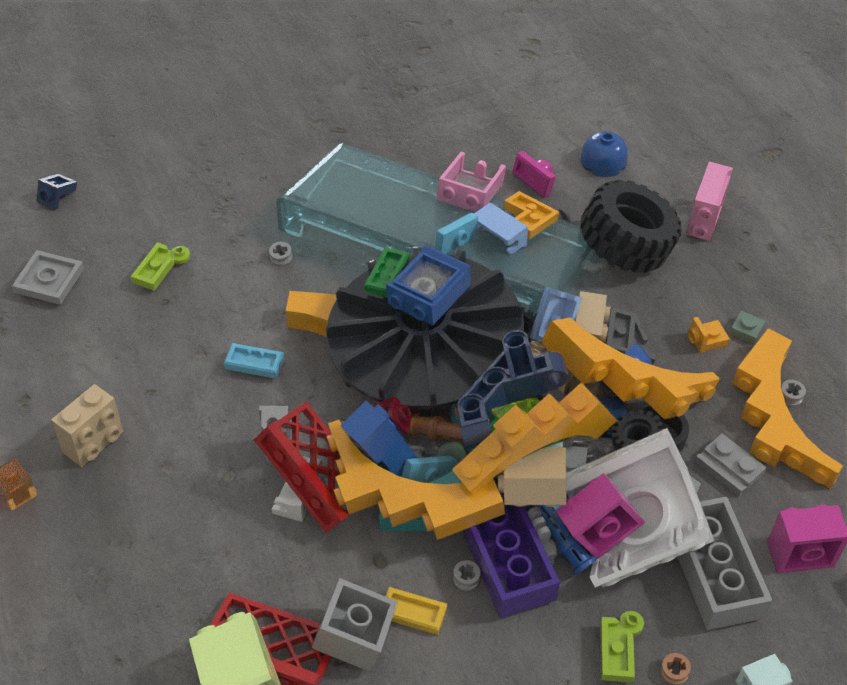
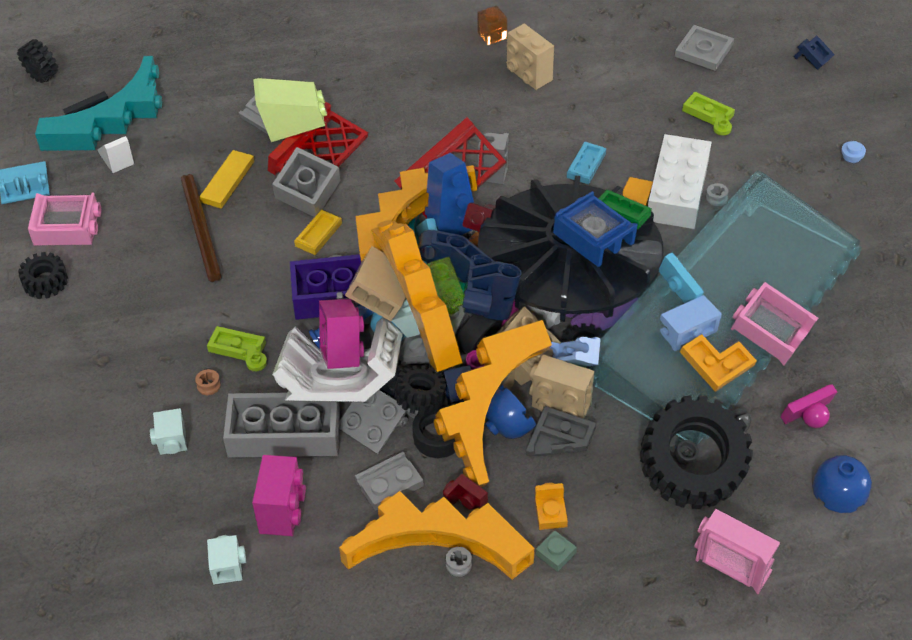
camera: 105 degrees right, 0 degrees up
(203, 159) = (853, 151): none -> light blue plate
(268, 274) = (679, 181): none -> white brick
(724, 400) = (467, 491): none -> dark red bracket

